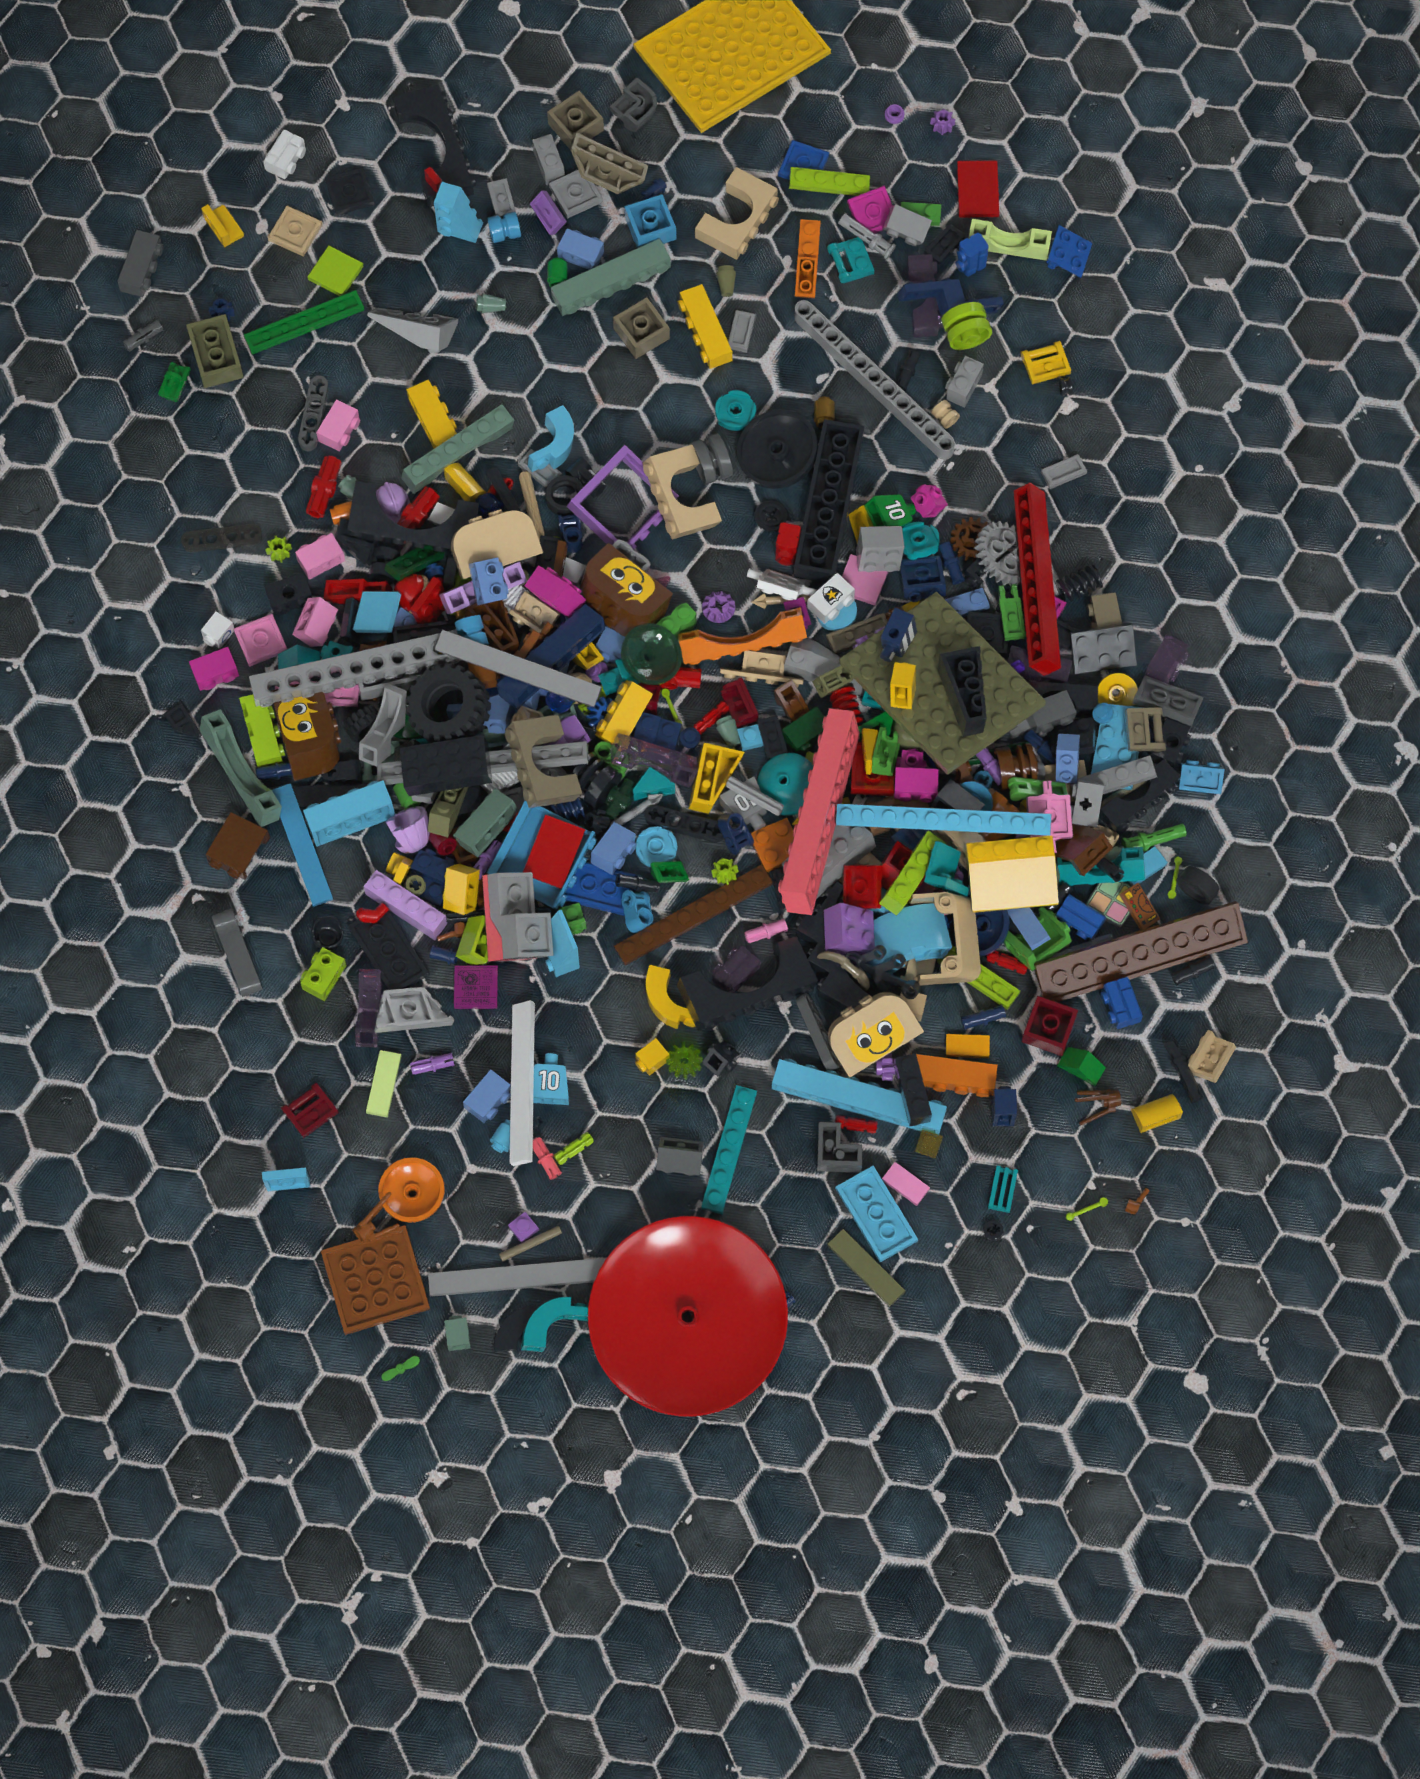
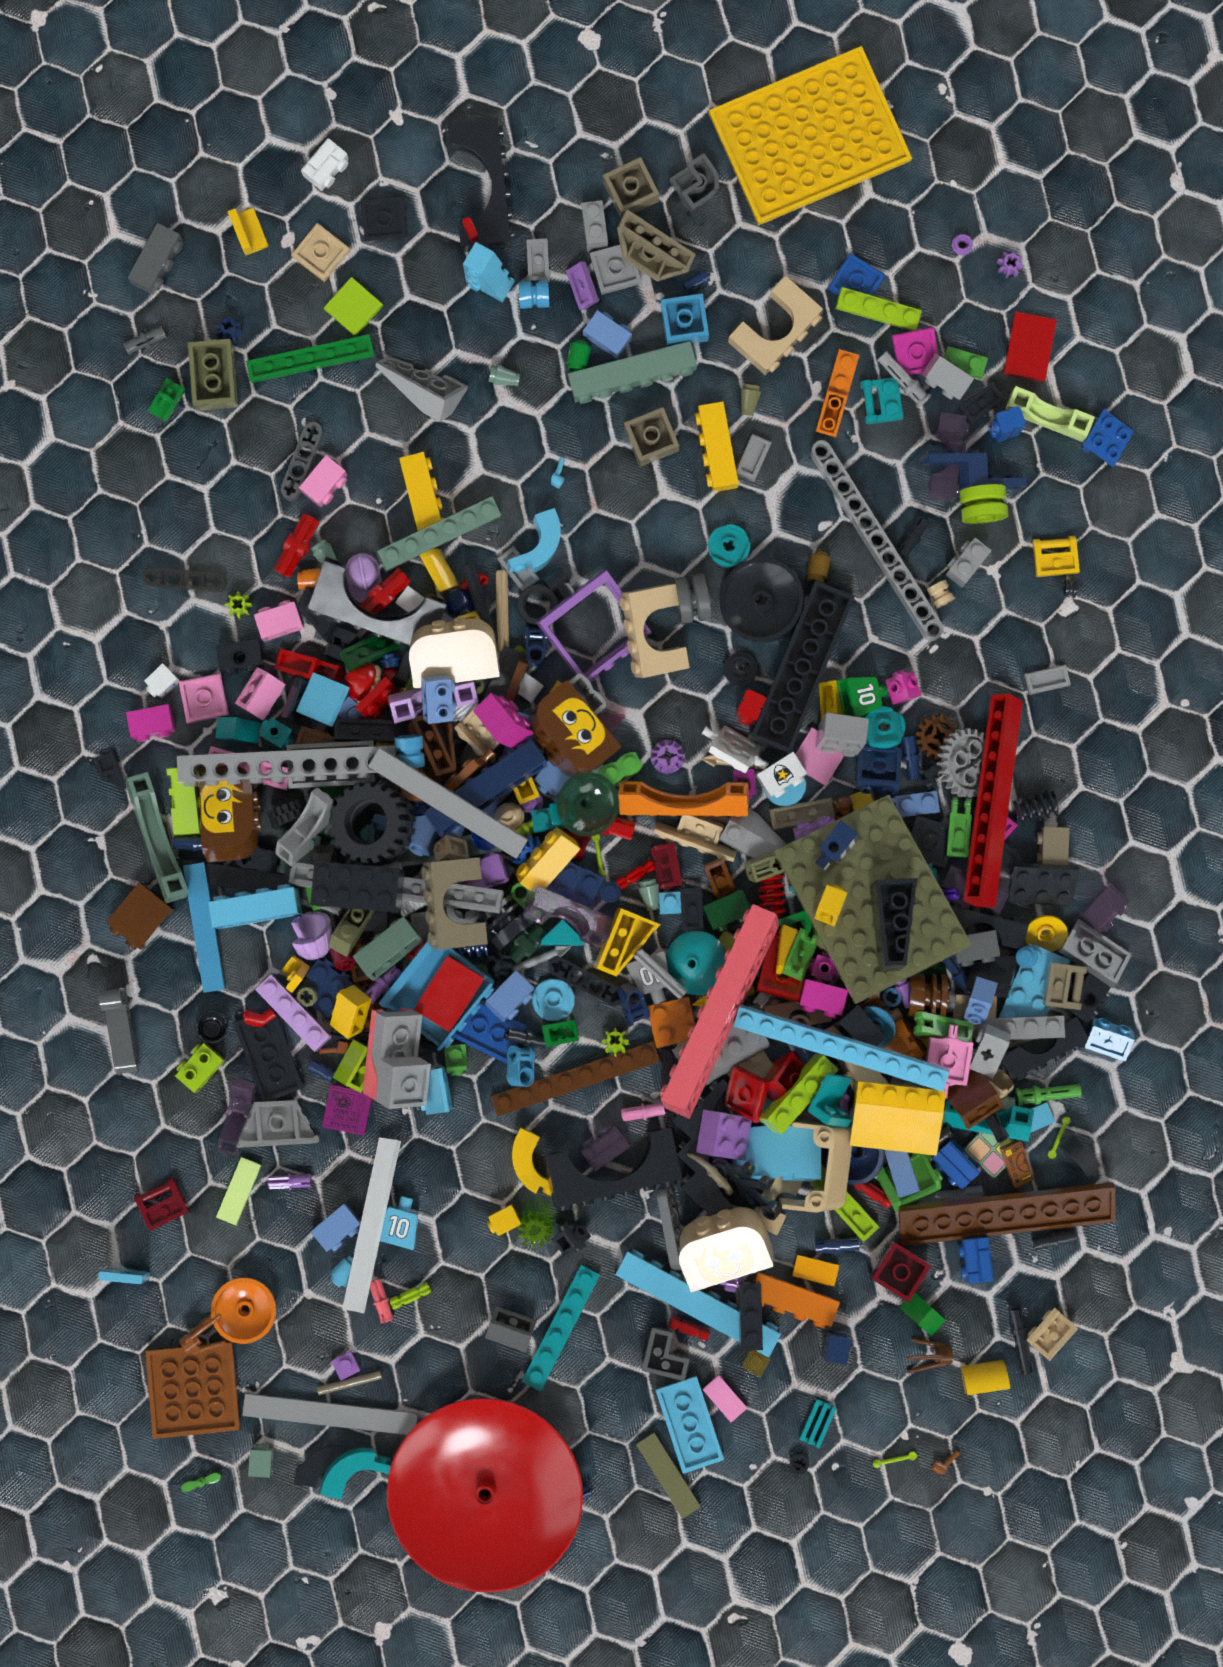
camera: 10 degrees right, 15 degrees up
(560, 385) = (556, 479): none -> medium azure hand

